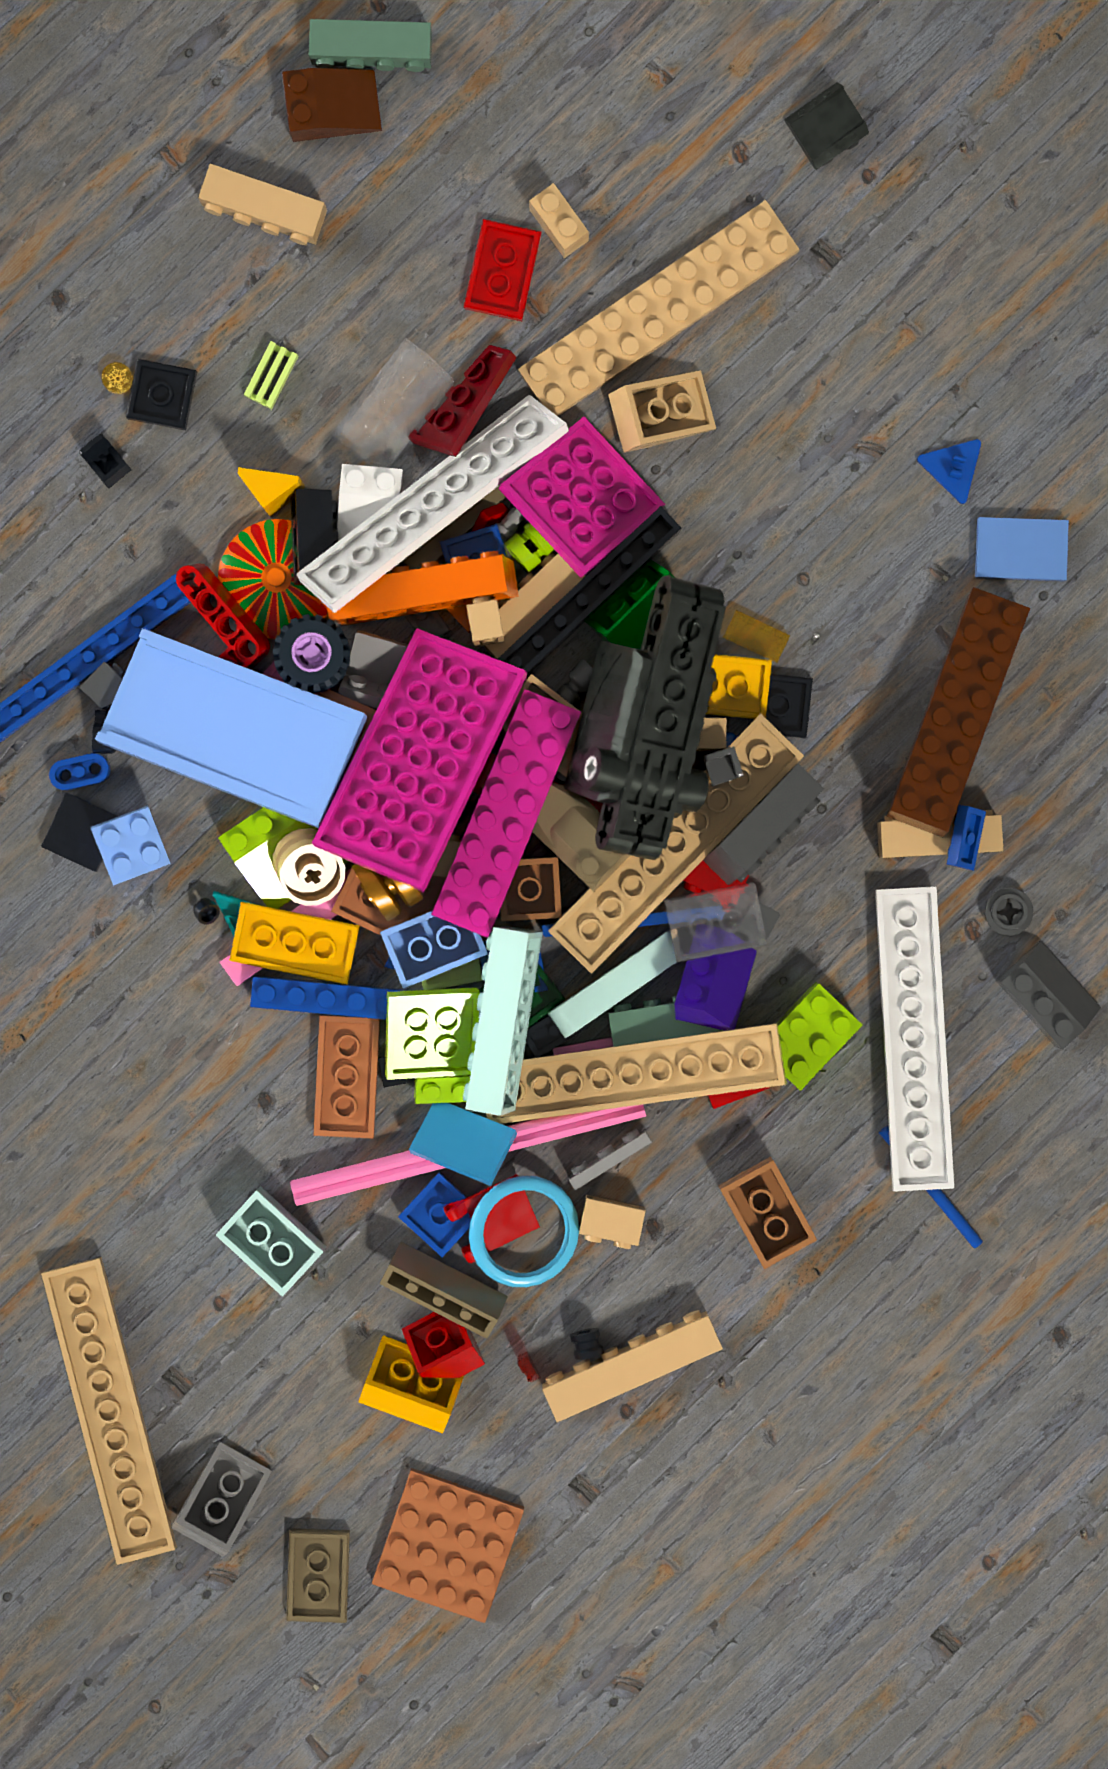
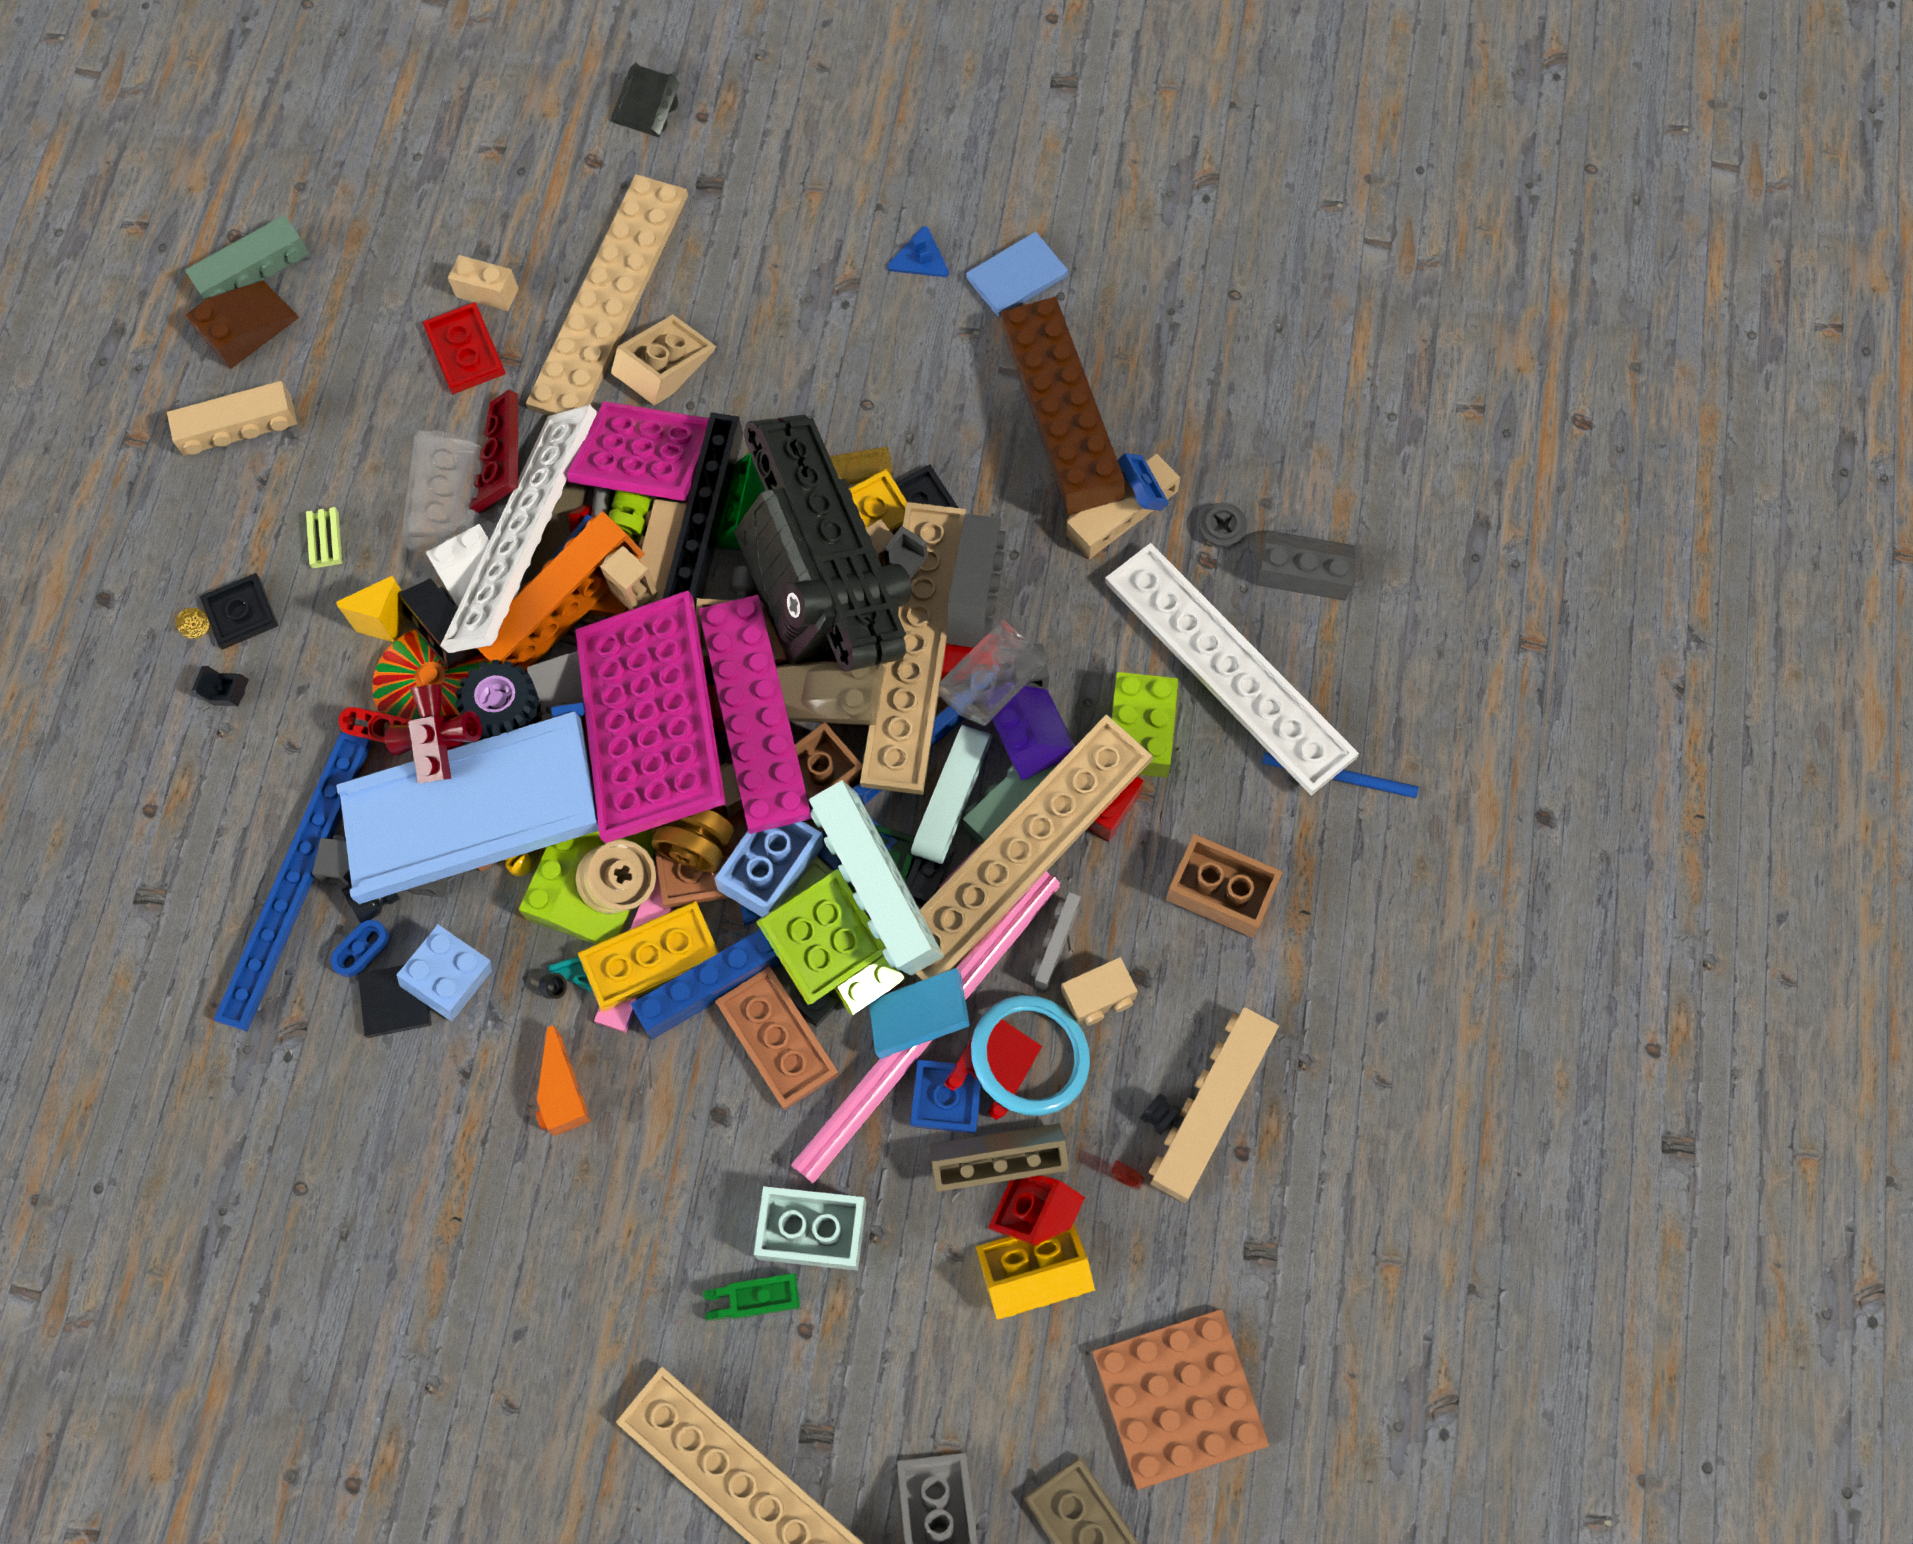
camera: 30 degrees left, 20 degrees down
(156, 1003) = (558, 1089): none -> orange slope
(199, 1257) = (756, 1297): none -> green hinge
(241, 650) = (432, 734): none -> dark red brick
(362, 701) = (564, 709): none -> blue tile

